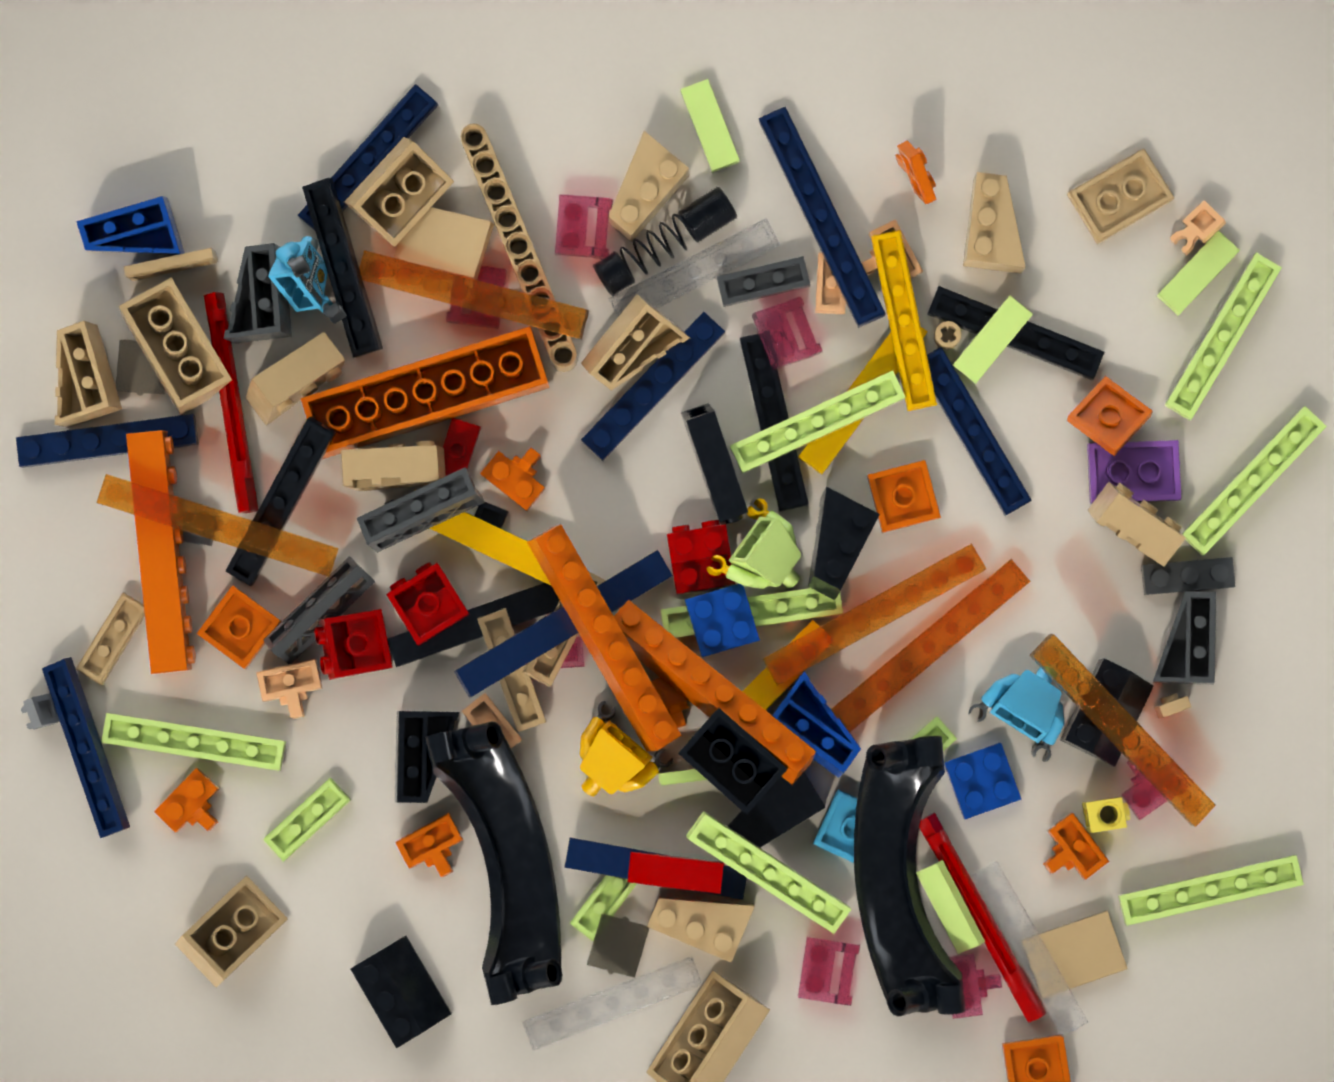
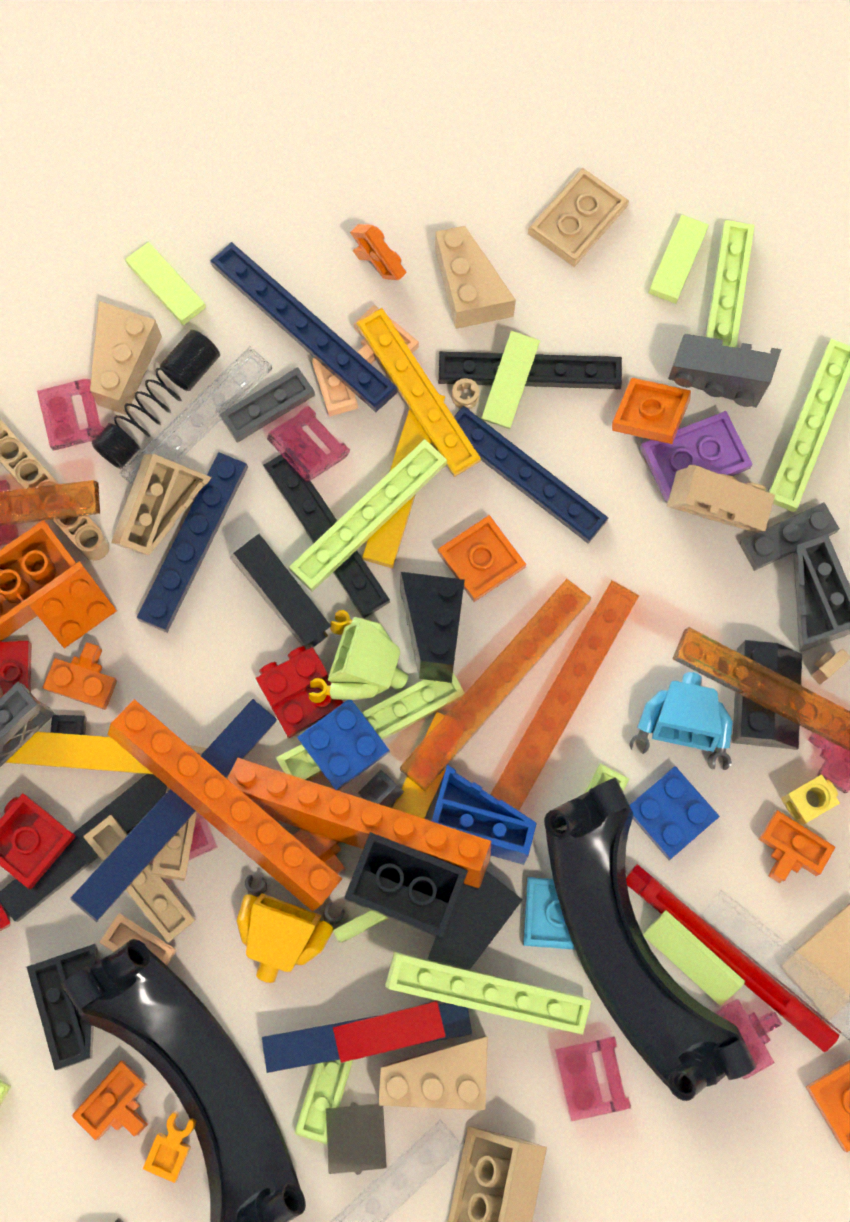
camera: 25 degrees left, 10 degrees down
(463, 900) = (169, 1151): none -> light orange plate
(529, 410) = (71, 605): none -> orange plate
(739, 671) = (381, 790): none -> dark grey plate
(1187, 404) = (724, 370): none -> dark grey wedge
(1200, 224) = (662, 215): light nougat plate -> none

